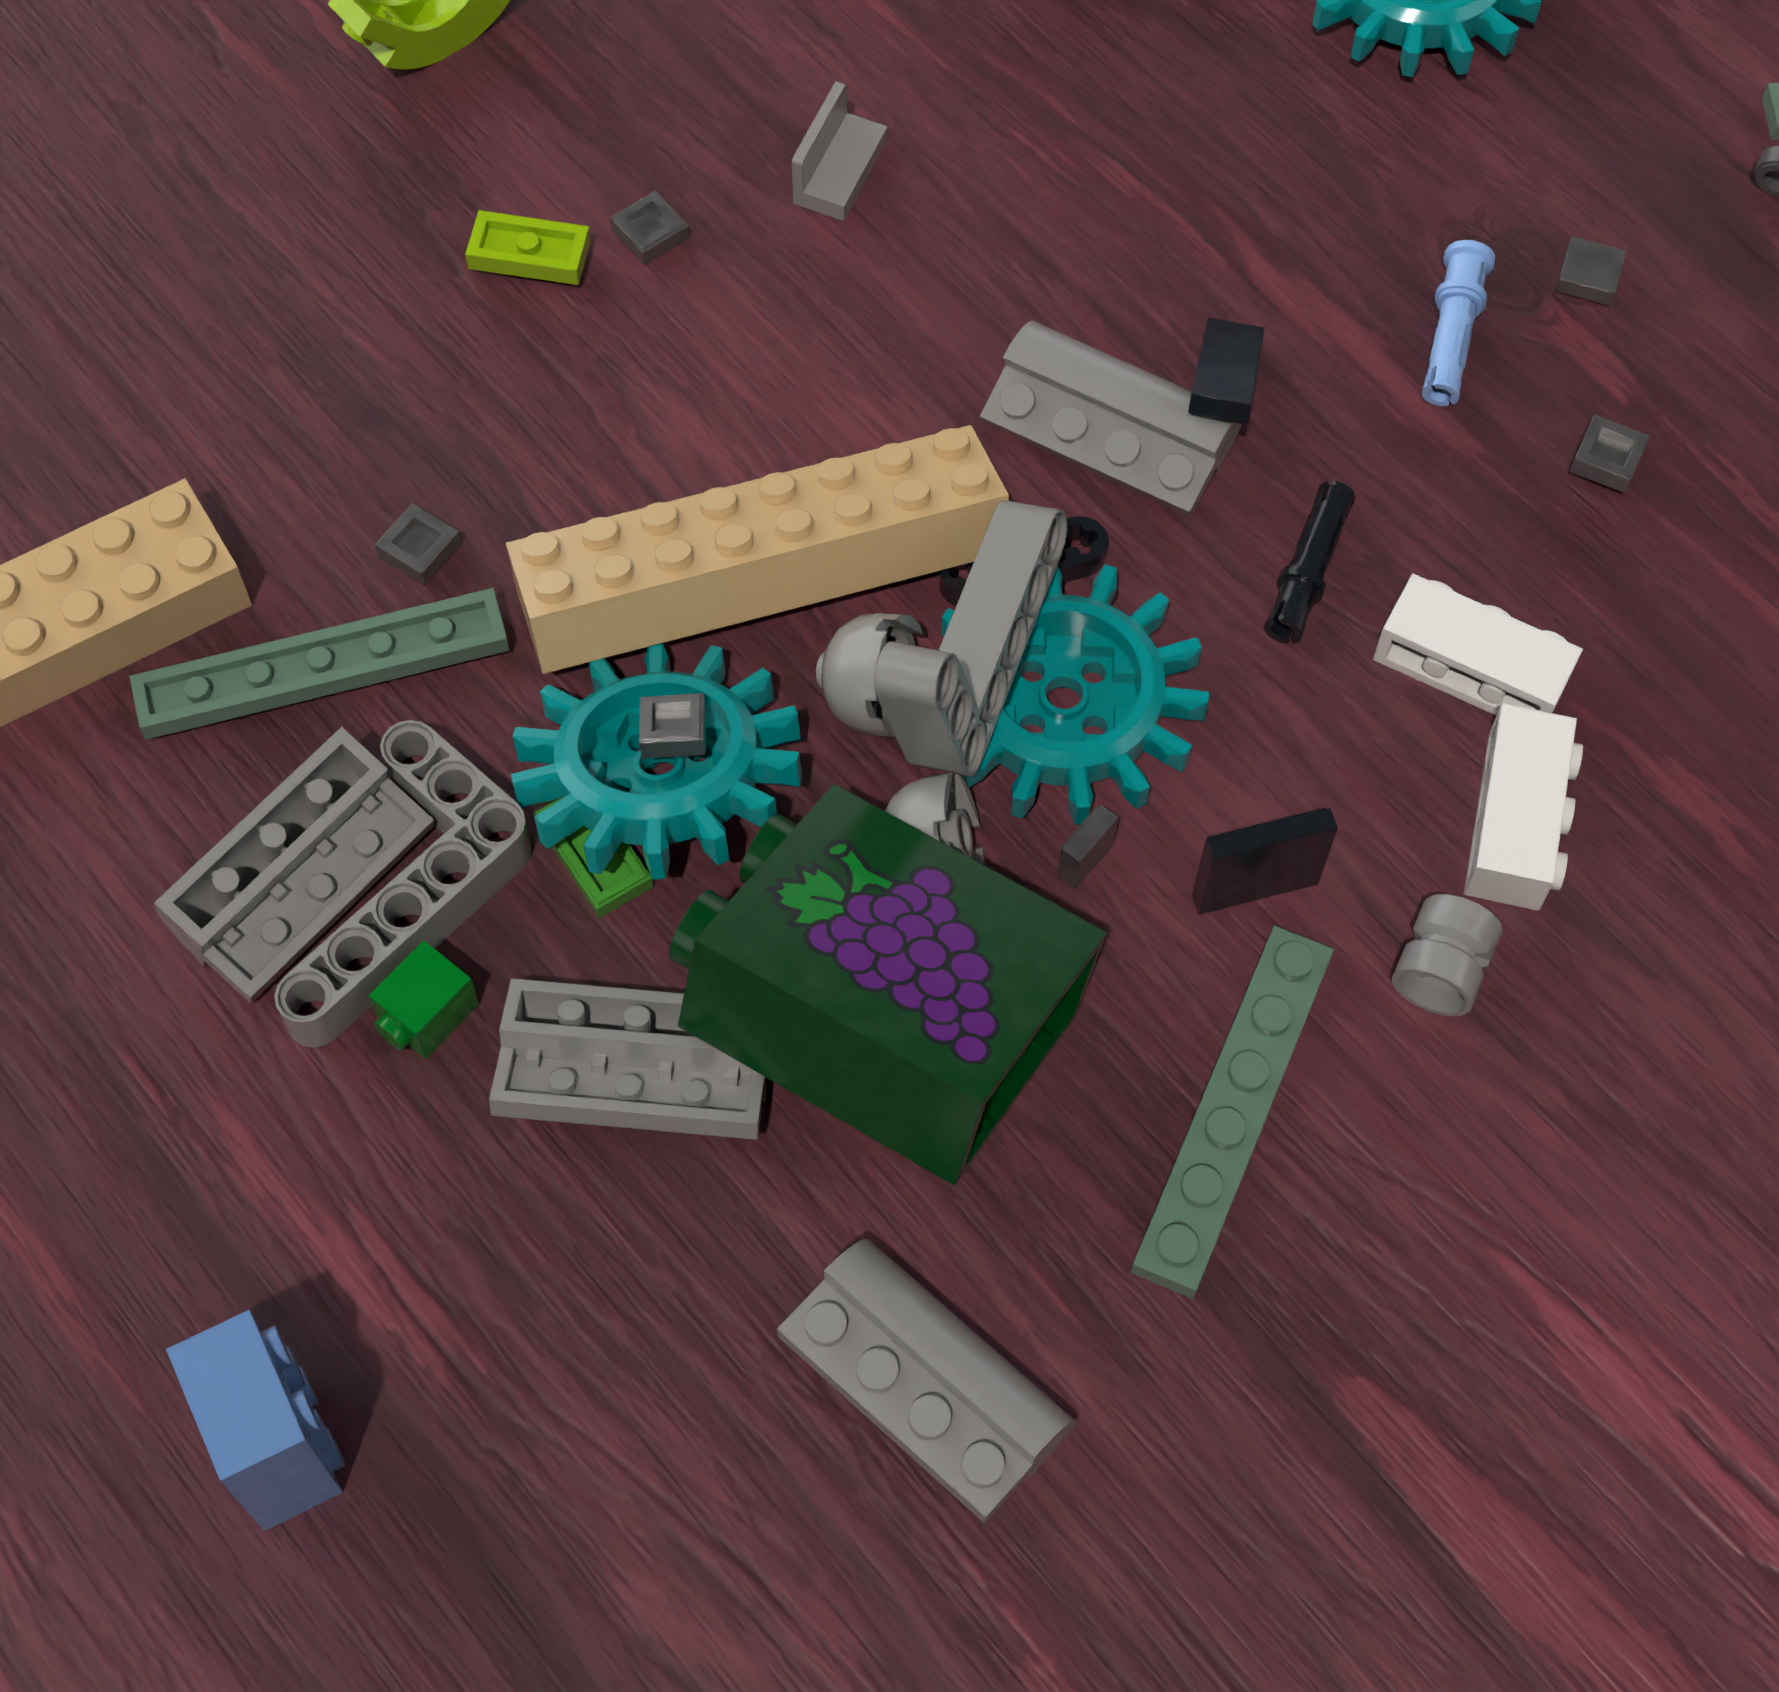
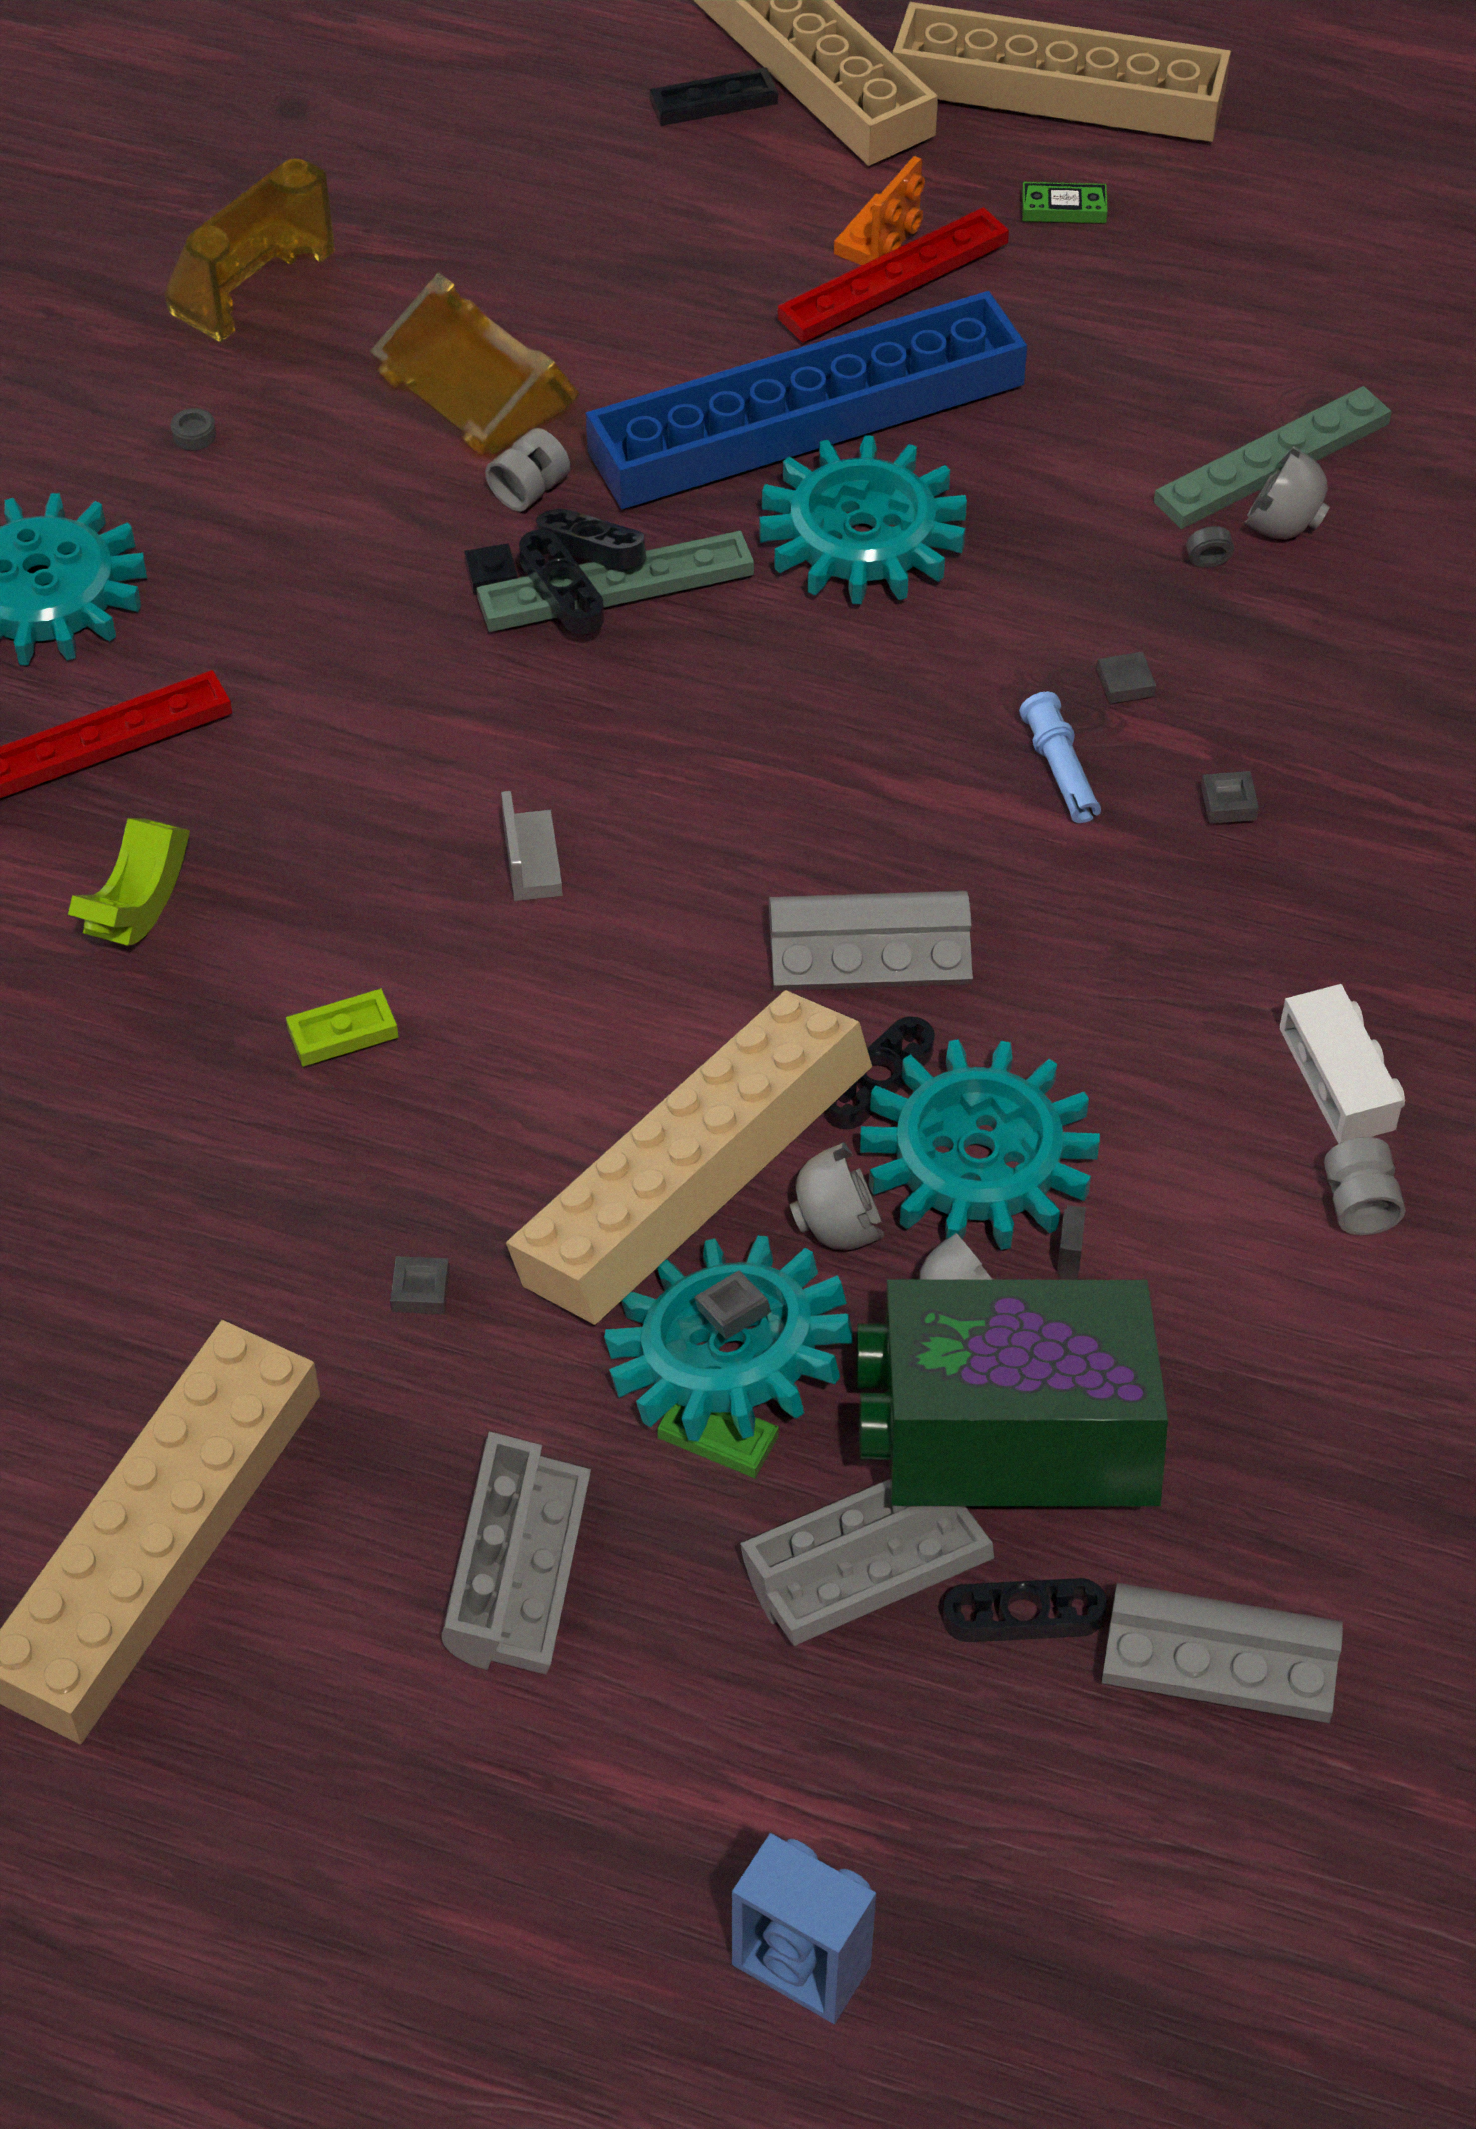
camera: 30 degrees left, 10 degrees down
(318, 663) = (412, 1408): sand green plate -> none
(414, 890) = (622, 1523): light grey beam -> none
(422, 1001) = (680, 1597): green brick -> none
(649, 228) = (421, 969): flat silver tile -> none
(725, 1171) = (1040, 1592): none -> black beam
(951, 697) = (918, 1148): light grey beam -> none
(1226, 371) = (934, 865): black tile -> none
(1232, 1113) = (1294, 1369): sand green plate -> none
(1263, 860) = (1204, 1185): black tile -> none
(1302, 580) = (1084, 986): black pin -> none
(1474, 650) = (1236, 975): white brick -> none

